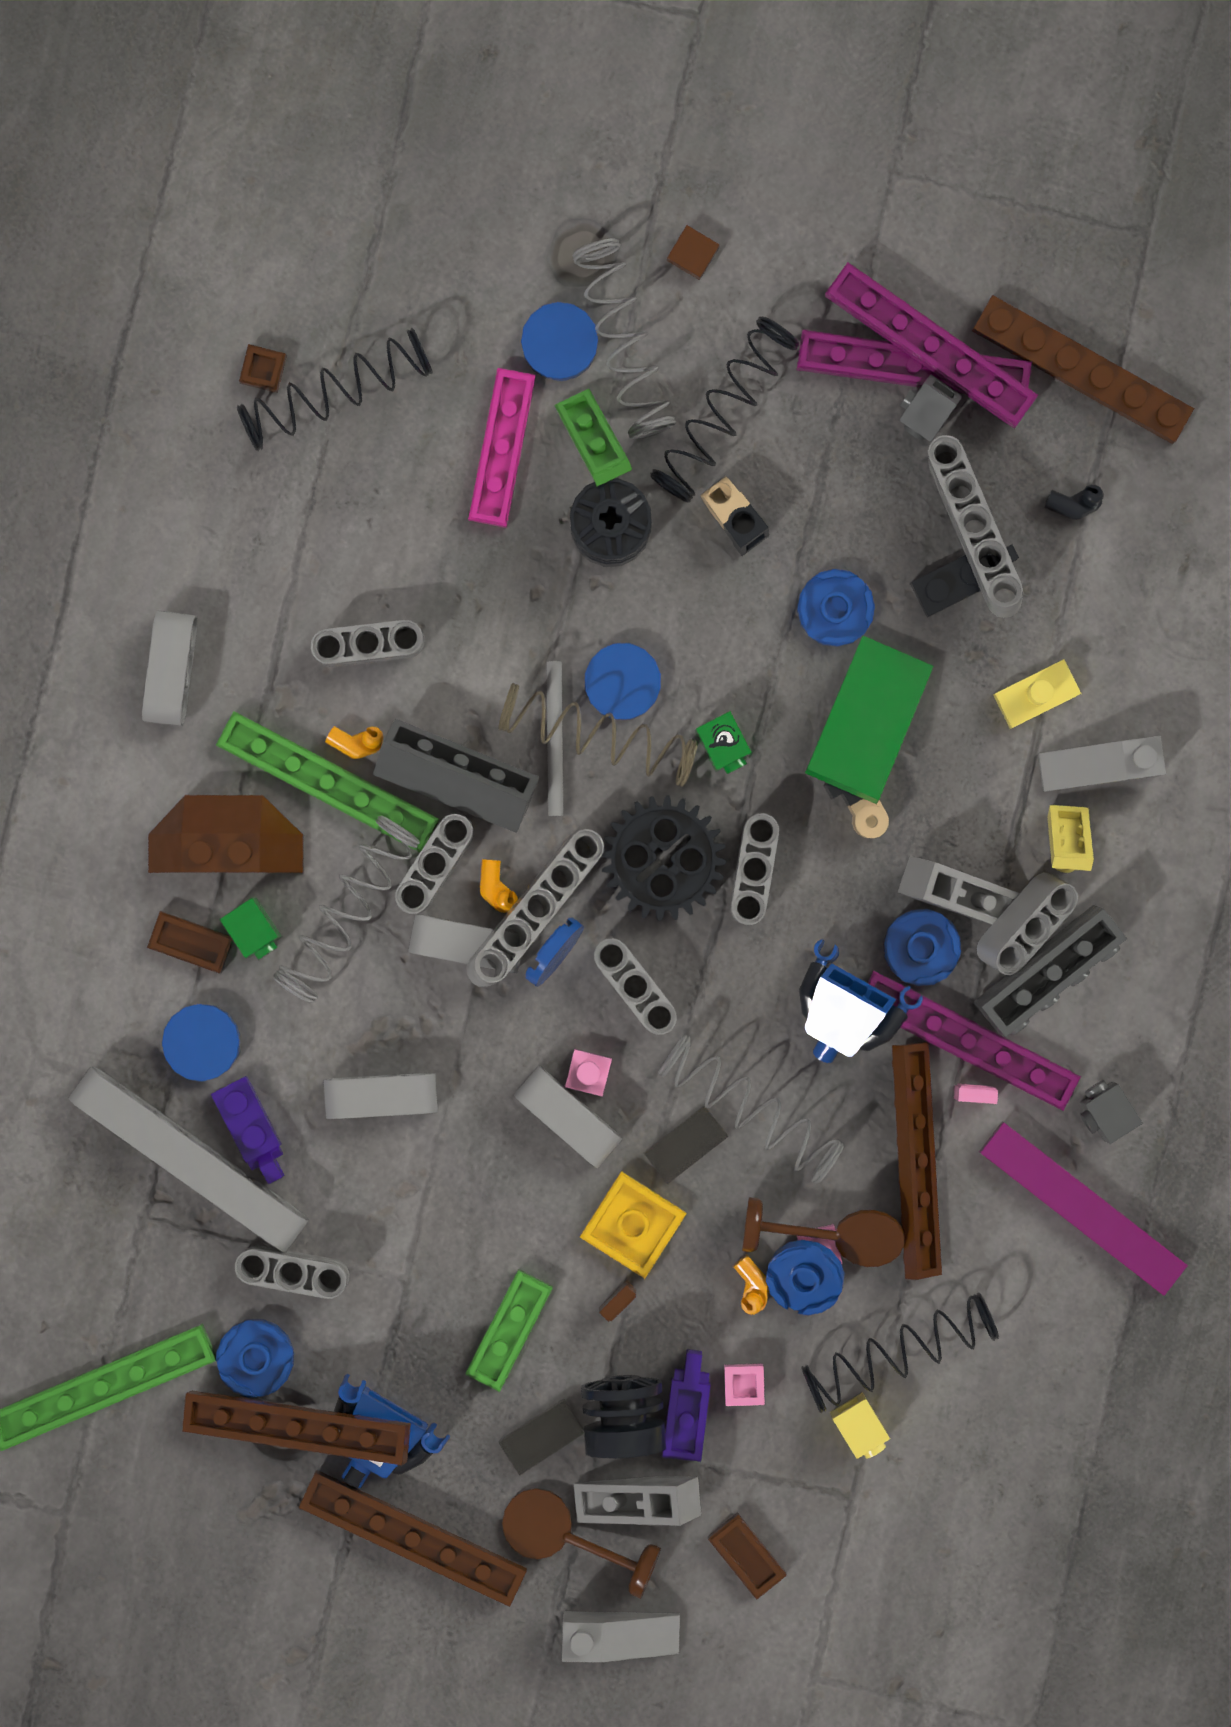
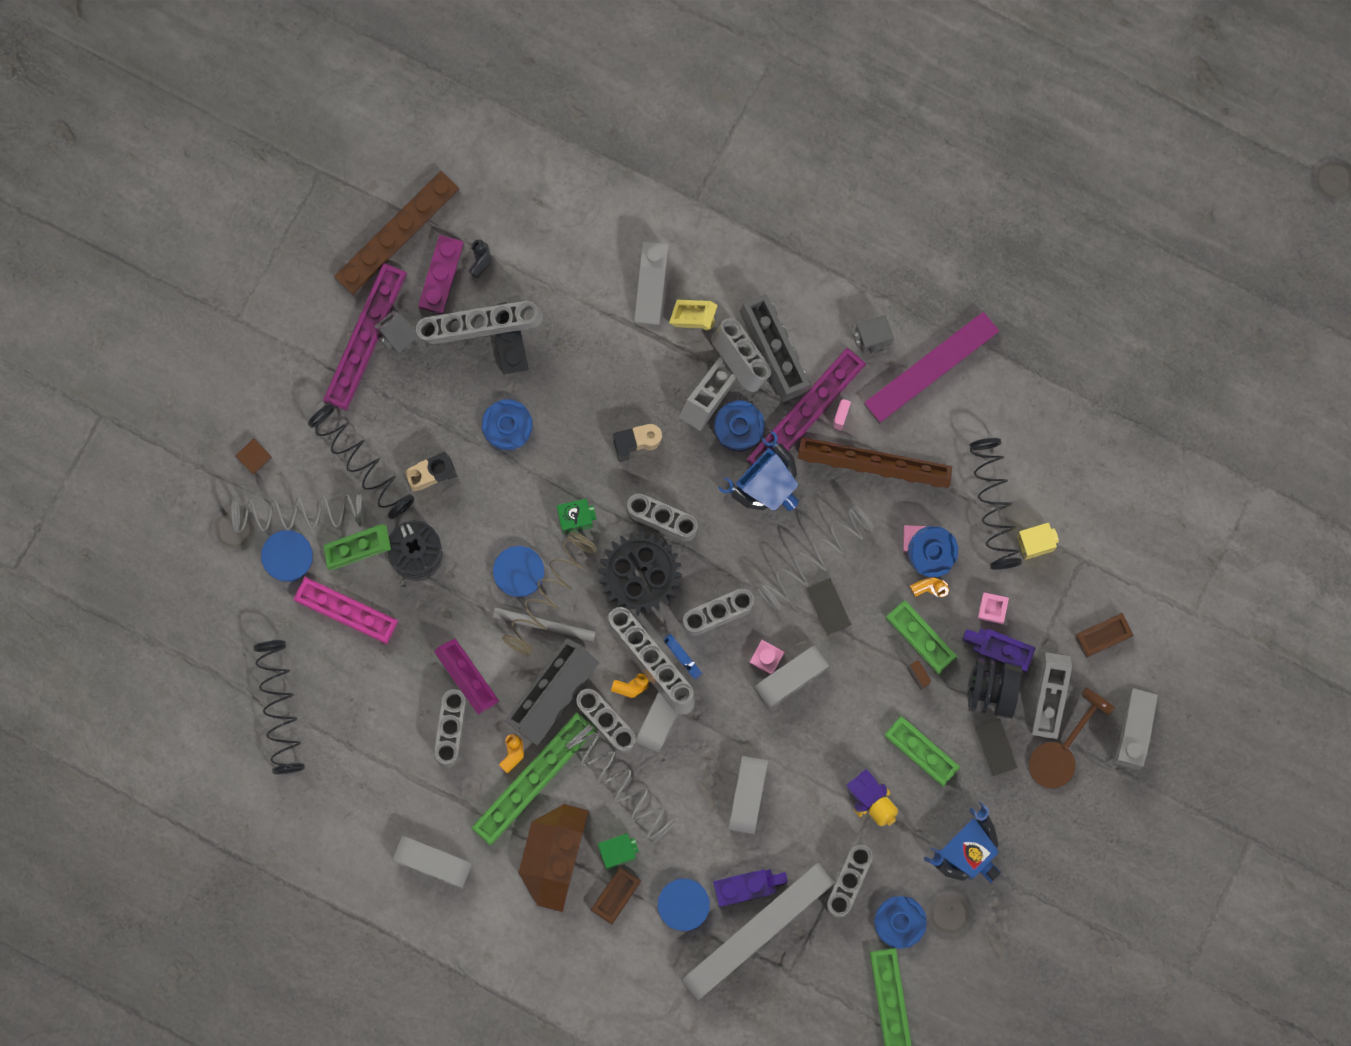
camera: 85 degrees left, 10 degrees down
(262, 368) = (251, 752): reddish brown tile -> none
(296, 1427) = (951, 901): reddish brown plate -> none
(413, 1538) = (1042, 847): reddish brown plate -> none
(418, 1276) = (871, 798): none -> dark purple piece
(448, 646) = (466, 676): none -> magenta plate
(633, 1224) = (872, 654): yellow tile -> none
(675, 1289) = (921, 637): none -> bright green tile
(861, 1237) = (917, 508): reddish brown piece -> none
(869, 719) = (585, 420): green tile -> none
(931, 345) = (355, 321): magenta tile -> none
(1036, 451) = (441, 275): none -> magenta plate
(1037, 694) = (596, 313): light yellow tile -> none

